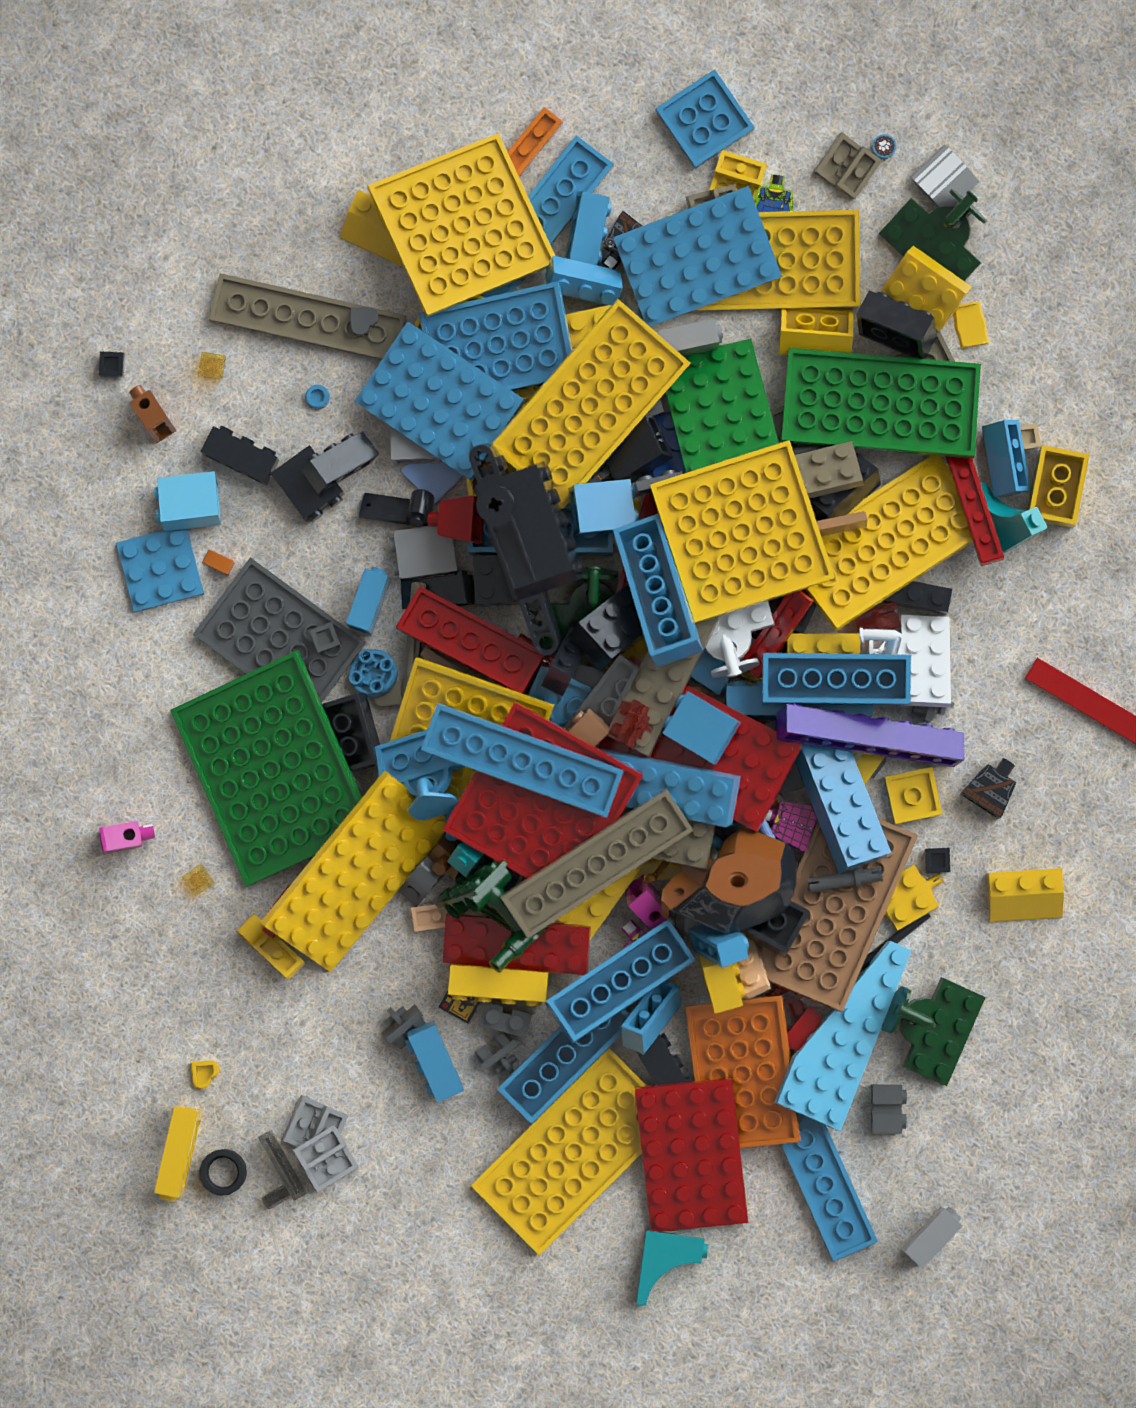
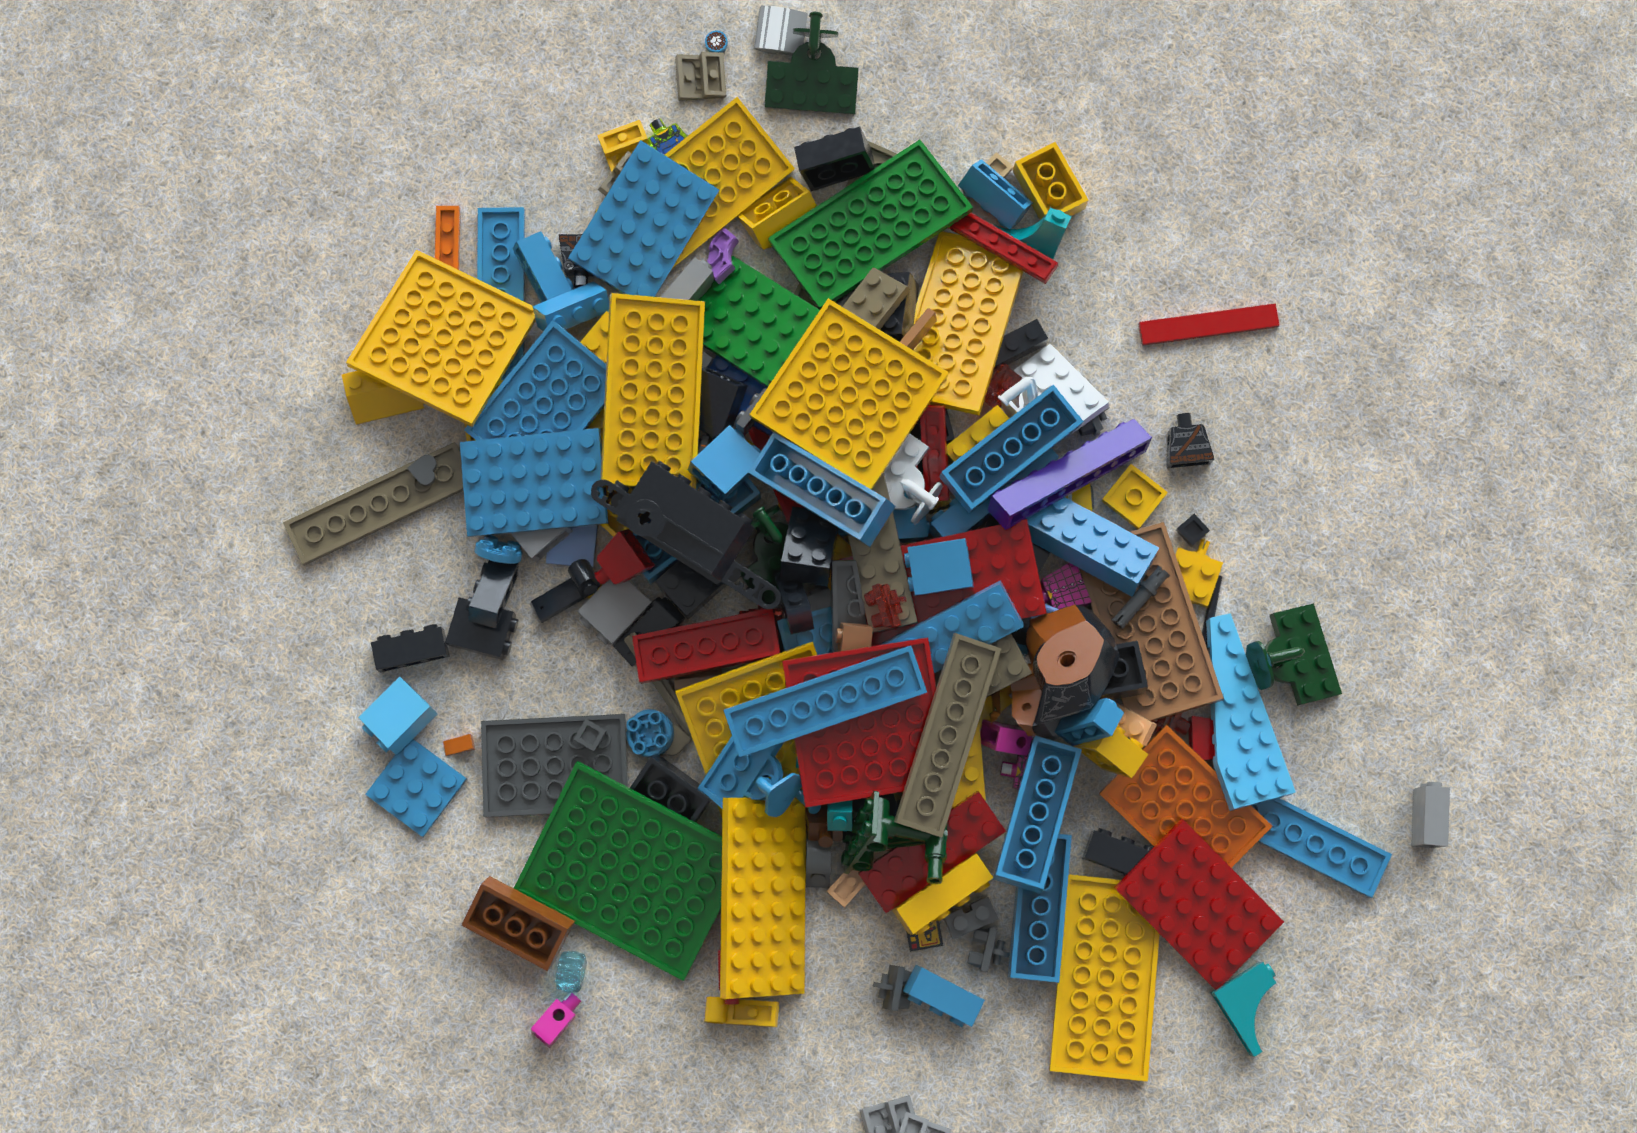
camera: 50 degrees left, 5 degrees down
(111, 364) = (252, 659): black plate -> none
(151, 414) = (314, 671): dark orange torso -> none
(154, 739) = (518, 923): none -> dark orange brick
(165, 809) = (571, 971): none -> clear light blue gear
(198, 880) = (641, 1006): clear yellow plate -> none
(212, 365) = (333, 598): clear yellow plate -> none
(317, 396) = (435, 557): dark azure tile -> none
(368, 600) = (601, 679): dark azure brick -> none
(370, 433) = (498, 551): none -> dark azure tile
(650, 1017) = (1082, 824): dark azure brick -> none
(705, 118) = (565, 123): dark azure plate -> none
(741, 330) = (720, 254): none -> medium lavender tile
(887, 1109) = (1313, 748): dark grey brick -> none
(926, 286) = (832, 113): yellow brick -> none
(970, 325) = (886, 121): yellow piece -> none
(1025, 894) = (1278, 502): yellow slope -> none

